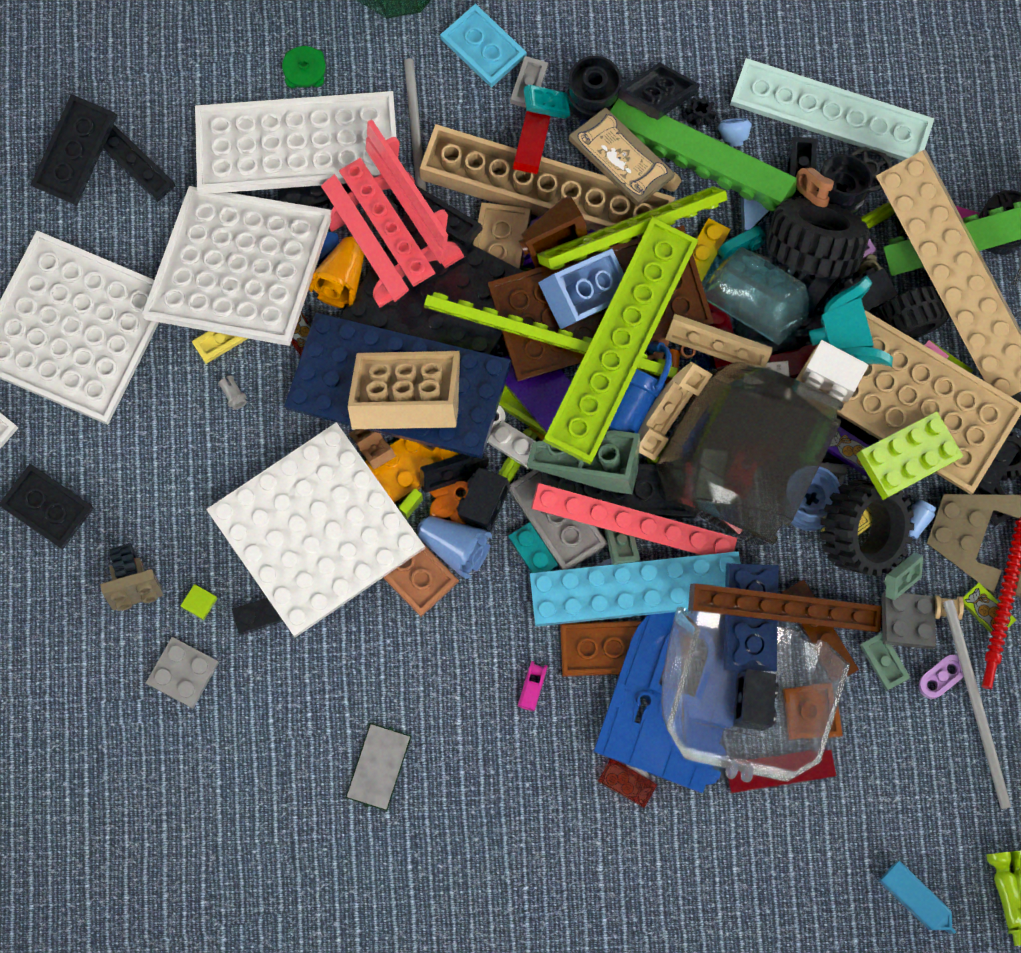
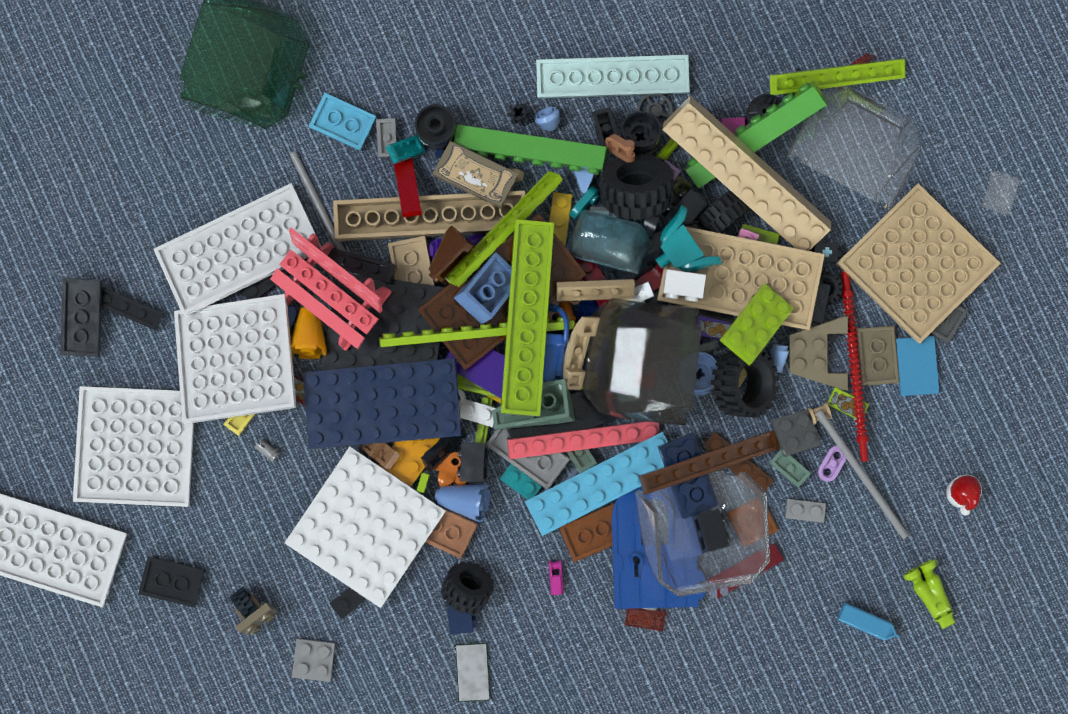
camera: 15 degrees left, 10 degrees up
(199, 602) = (304, 607): lime tile -> none
(304, 67) = (219, 188): green piece -> none
(392, 684) = (460, 622): none -> dark blue brick
(405, 390) = (389, 409): tan slope -> none
(414, 651) = (461, 597): none -> black tyre
(658, 91) = (483, 112): black plate -> none
(885, 724) = (805, 510): none -> light grey plate
(904, 576) = (782, 404): sand green plate -> none

